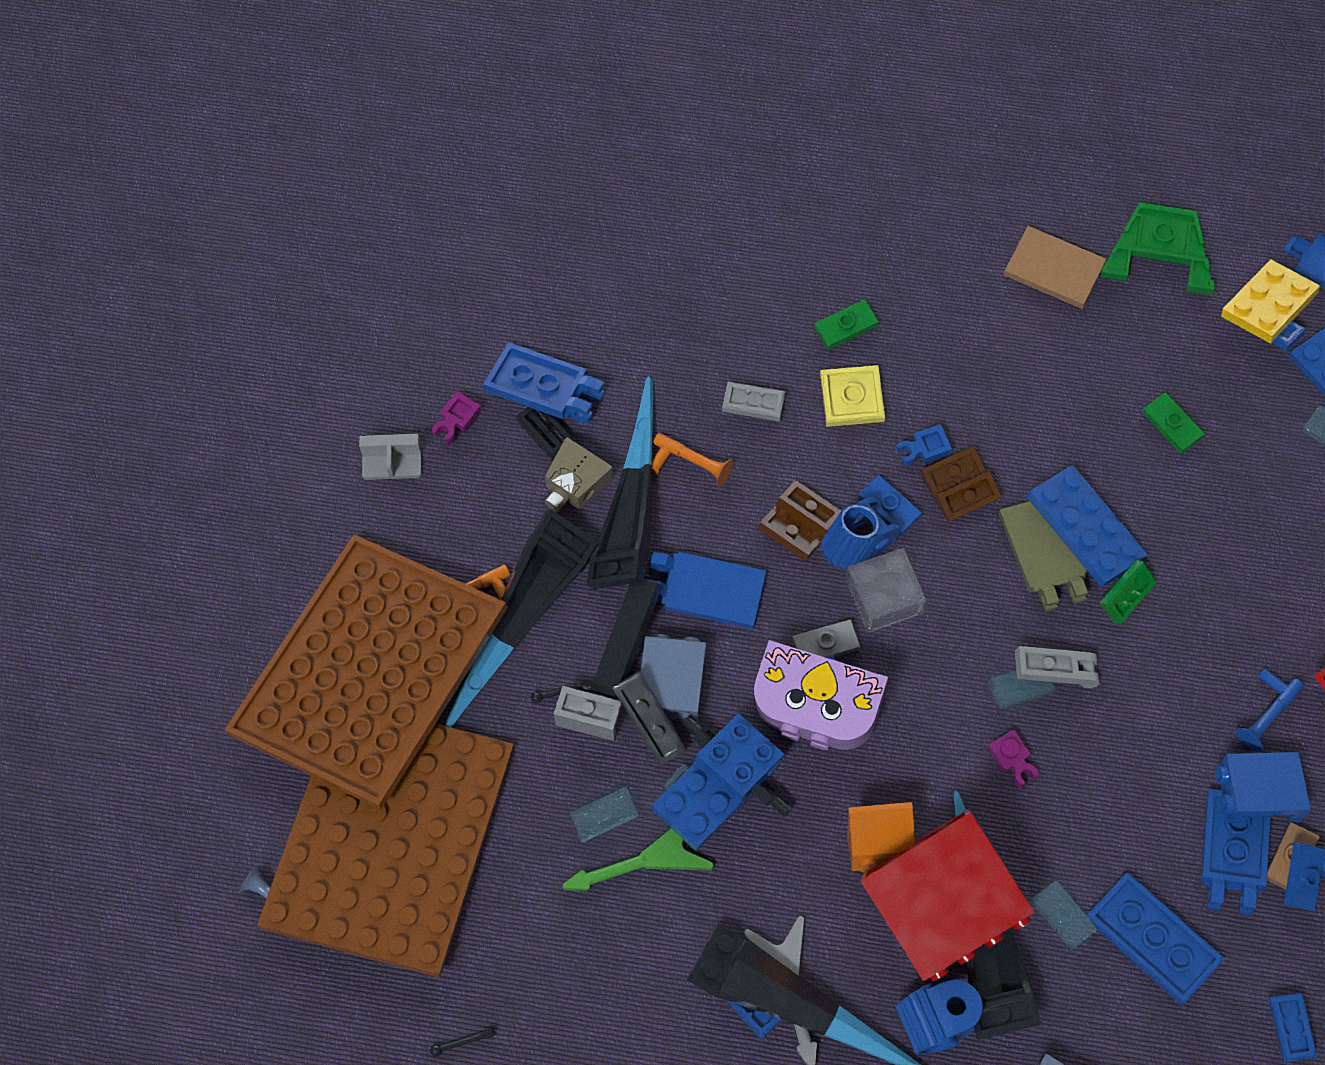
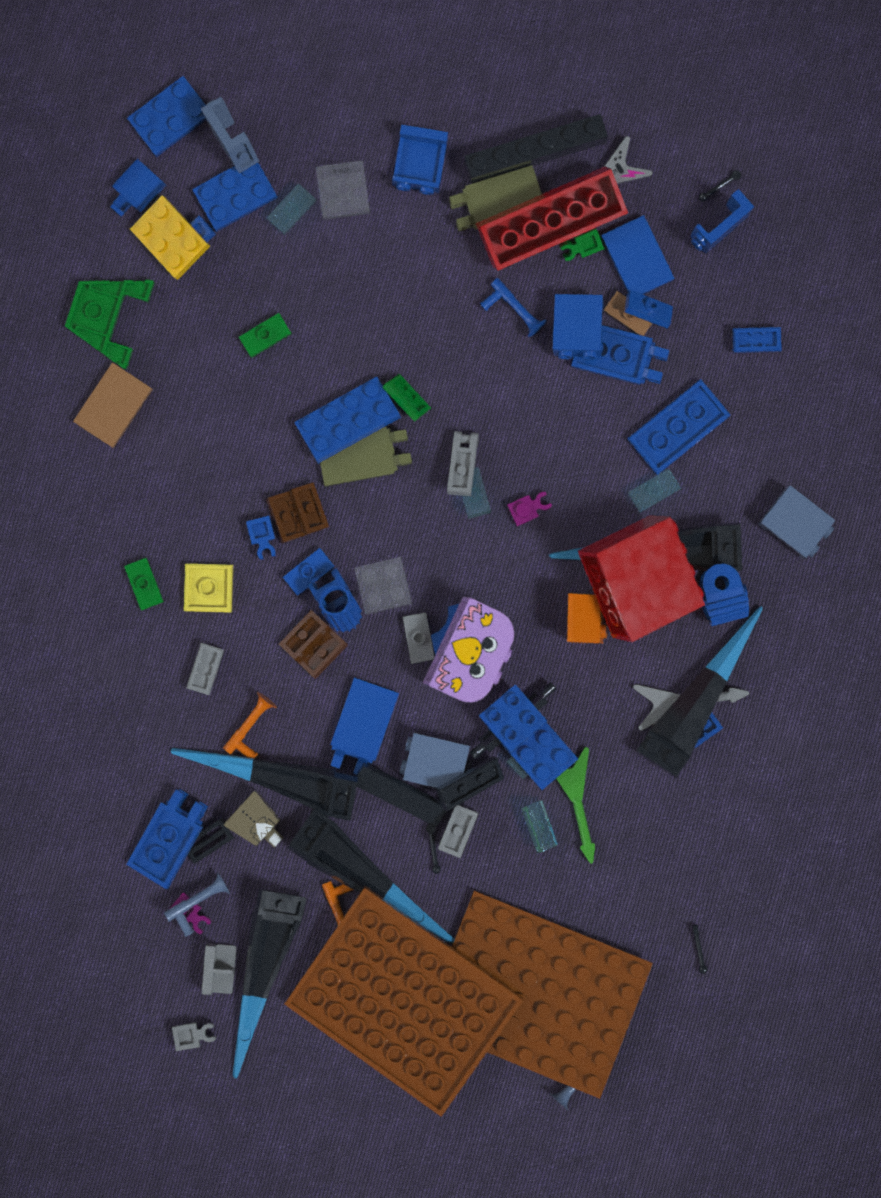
camera: 85 degrees left, 20 degrees up
(308, 435) = (189, 1036): none -> light grey plate
(441, 510) = (271, 933): none -> black plate
(456, 398) = (178, 910): none -> sand blue piece

